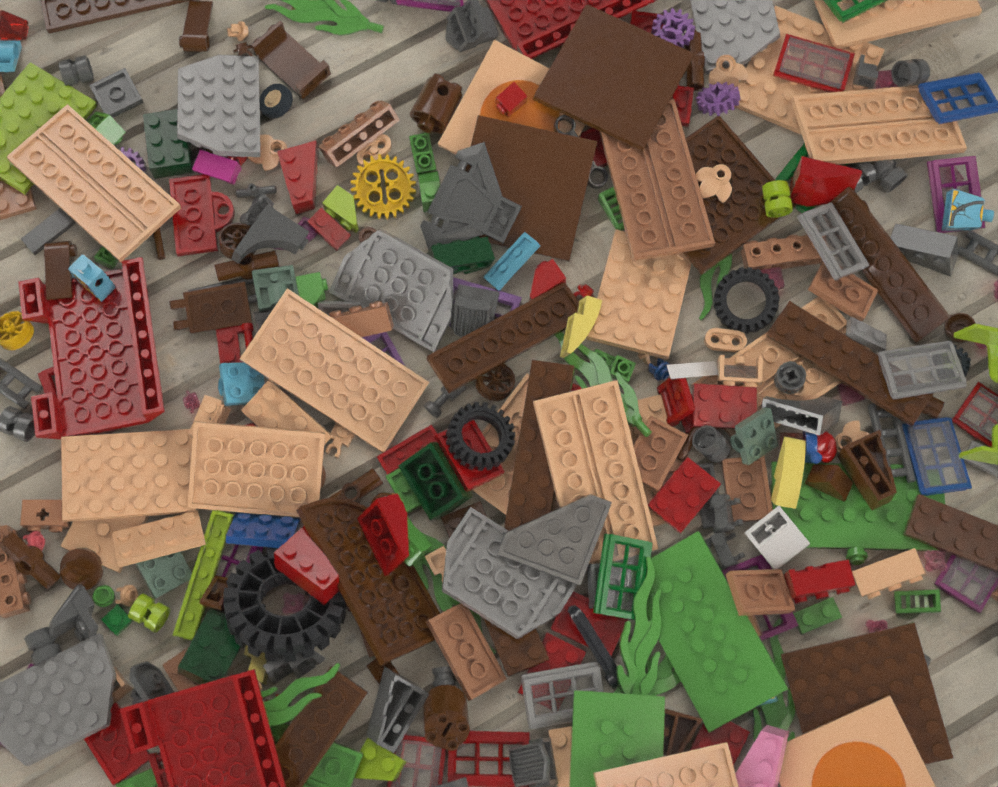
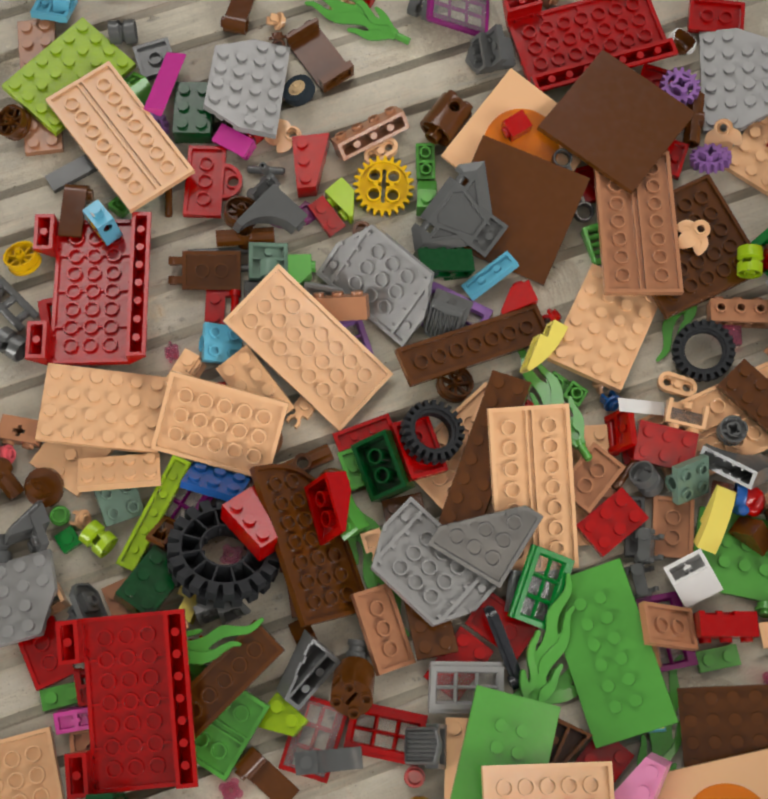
camera: 10 degrees right, 0 degrees up
(131, 117) = (164, 83): none -> dark pink slope
(434, 407) = (393, 398): dark grey piece -> none

